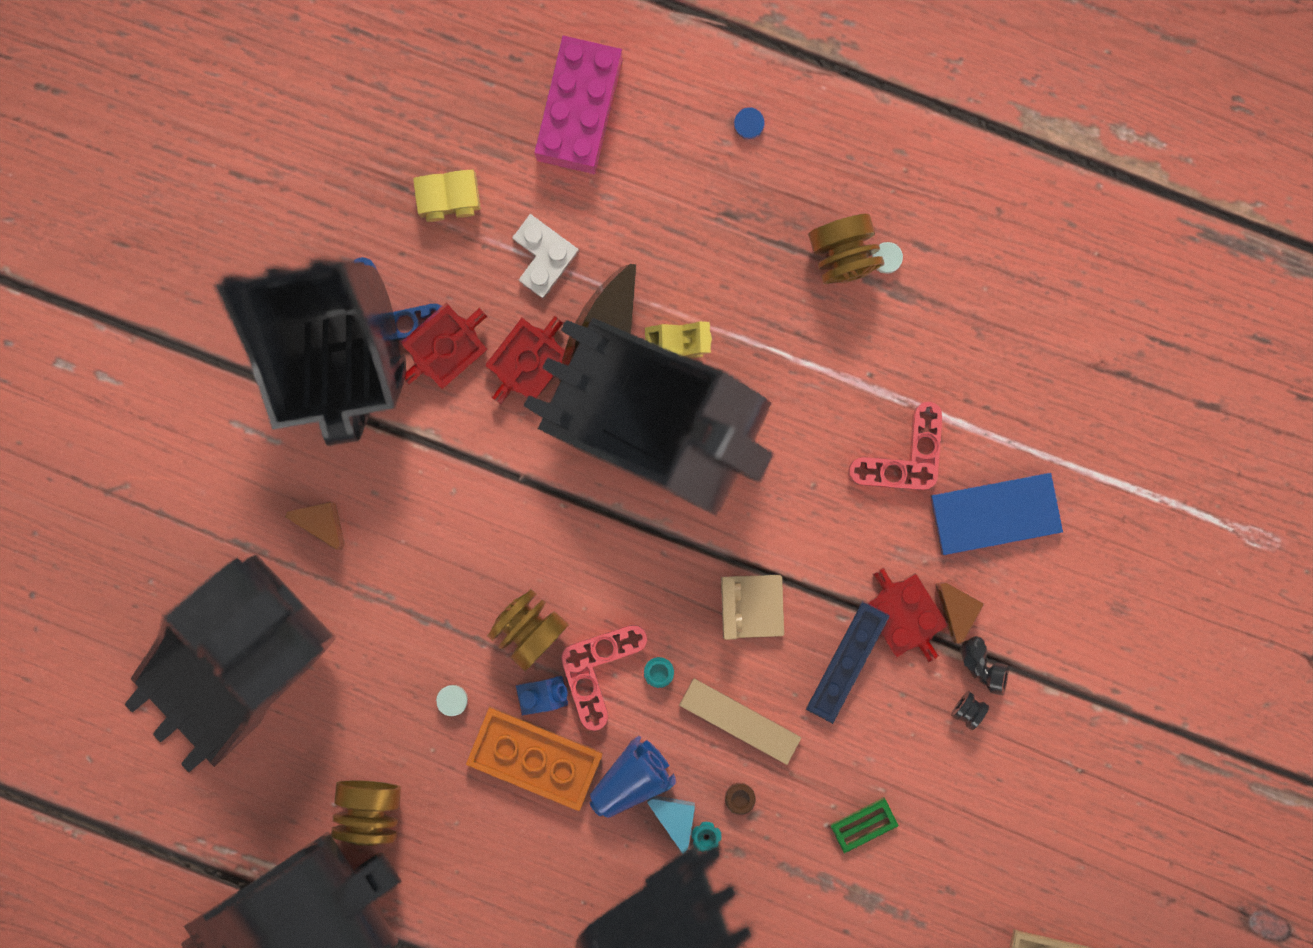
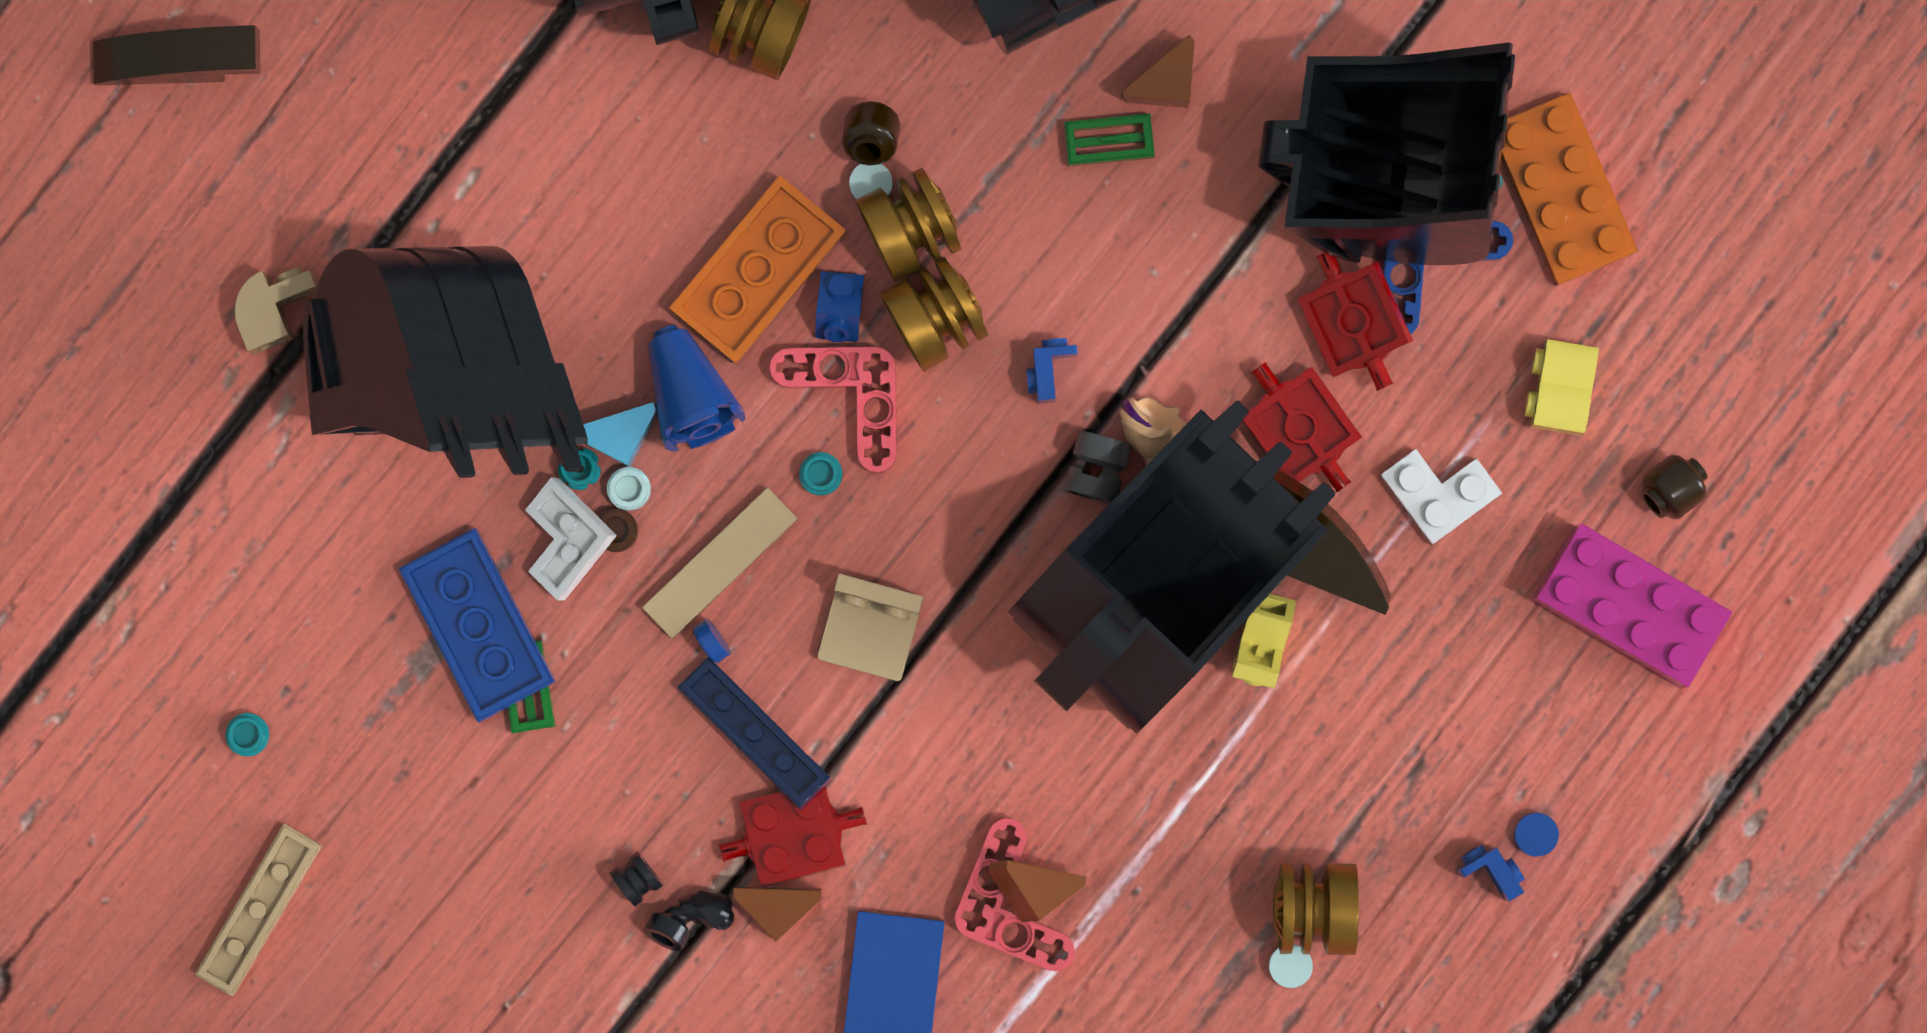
camera: 110 degrees right, 0 degrees up
(317, 229) = (1565, 190): none -> orange plate
(362, 553) = (1115, 156): none -> green tile
(417, 711) = (871, 133): none -> dark brown head
(471, 666) = (909, 224): none -> pearl gold wheel
(490, 100) = (1674, 487): none -> dark brown head
(548, 544) = (1041, 377): none -> blue bracket
(558, 460) = (1149, 425): none -> light nougat hair
(586, 487) = (1102, 453): none -> dark grey wheel
(709, 798) = (629, 488): none -> light aqua tile
(757, 823) = (577, 535): none -> white plate
(782, 135) = (1503, 873): none -> blue bracket
(794, 710) = (711, 641): none -> blue tile
(833, 872) = (477, 625): none -> blue tile
(894, 440) = (1034, 889): none -> dark orange slope

